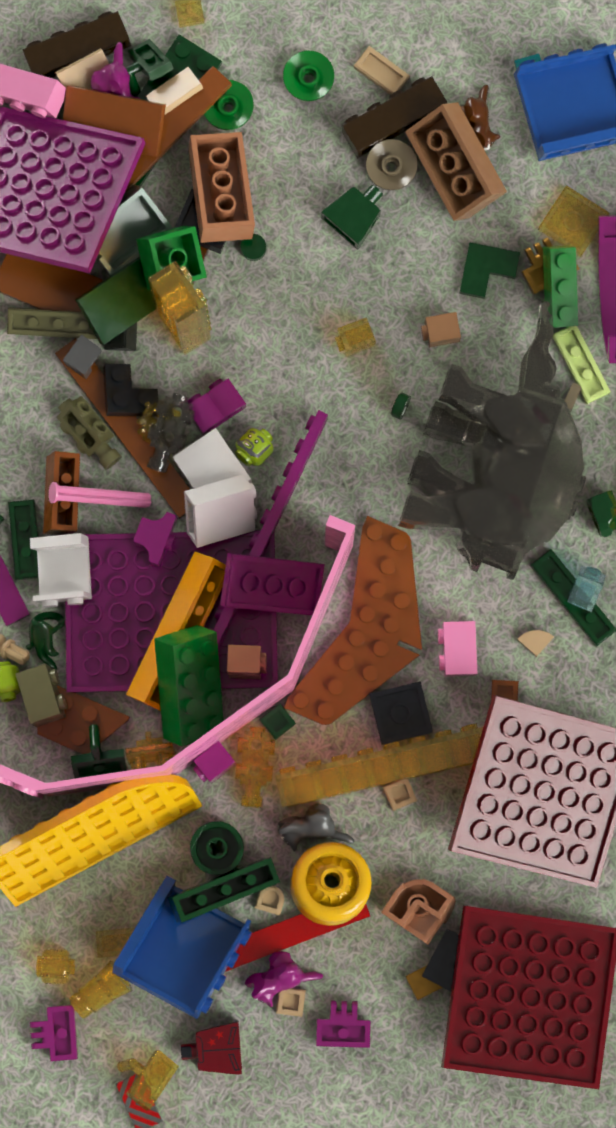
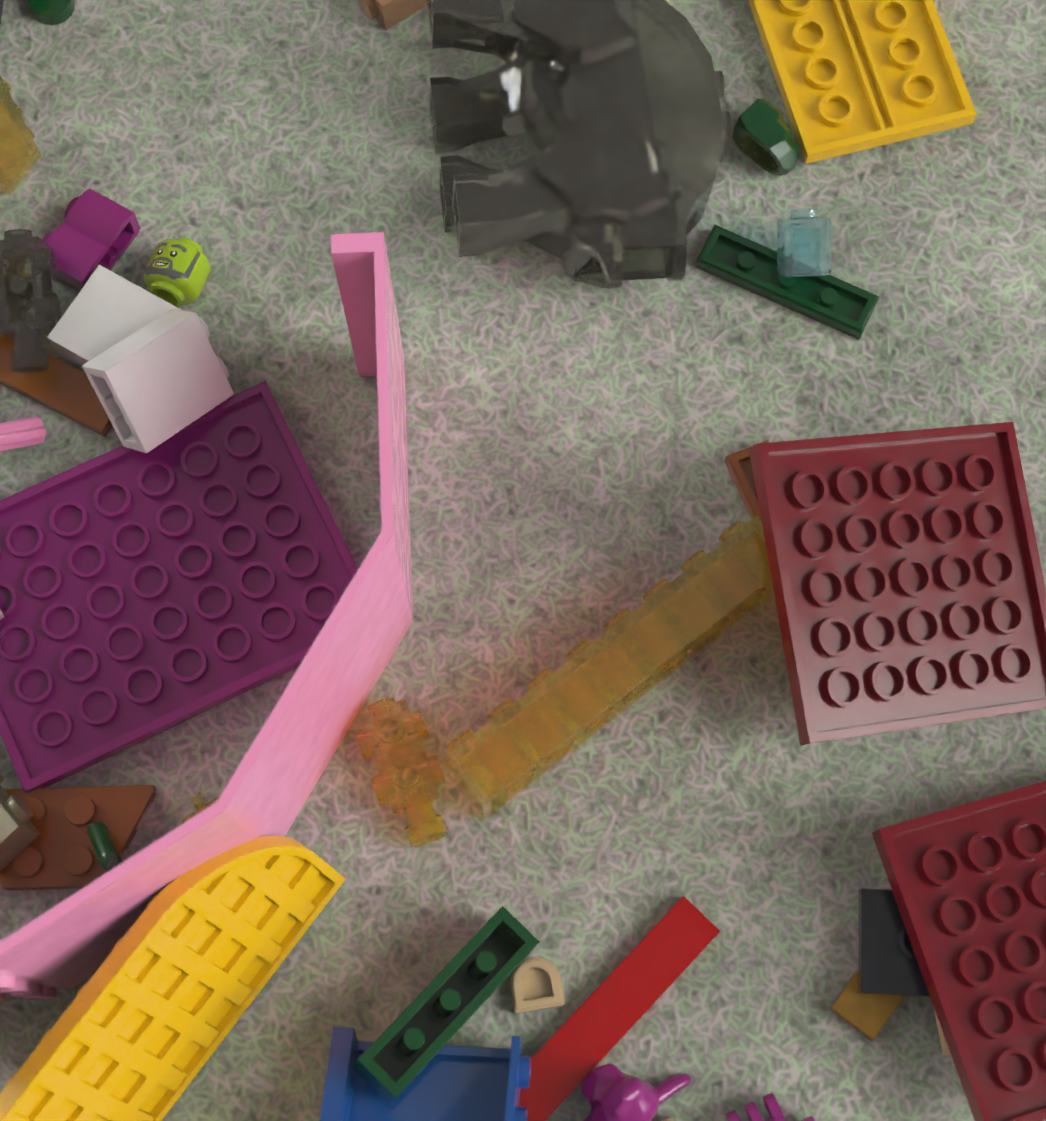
camera: 25 degrees left, 10 degrees down
(156, 537) = (71, 468): magenta brick -> none
(188, 608) = (172, 601): light orange brick -> none
(189, 684) = (215, 660): green brick -> none
(213, 763) = (330, 791): magenta brick -> none
(213, 833) = (383, 915): dark green brick -> none
(246, 662) = (304, 585): nougat brick -> none
(271, 584) = (292, 456): magenta tile -> none
(277, 721) = (409, 679): dark green tile -> none
(281, 497) = (248, 402): magenta plate -> none
(315, 824) = (550, 819): dark grey animal -> none
(328, 904) = (620, 942): yellow wheel -> none
(355, 337) = (265, 54): clear yellow brick -> none
(368, 647) = (501, 496): dark orange wing -> none
(399, 794) = (667, 704): tan tile -> none
(400, 405) = (380, 120): dark green tile -> none
(401, 713) = (604, 570): black plate -> none
(420, 908) = (799, 875): nougat brick -> none
(458, 649) = (649, 430): bright pink brick -> none
(535, 641) = (761, 369): tan tile -> none

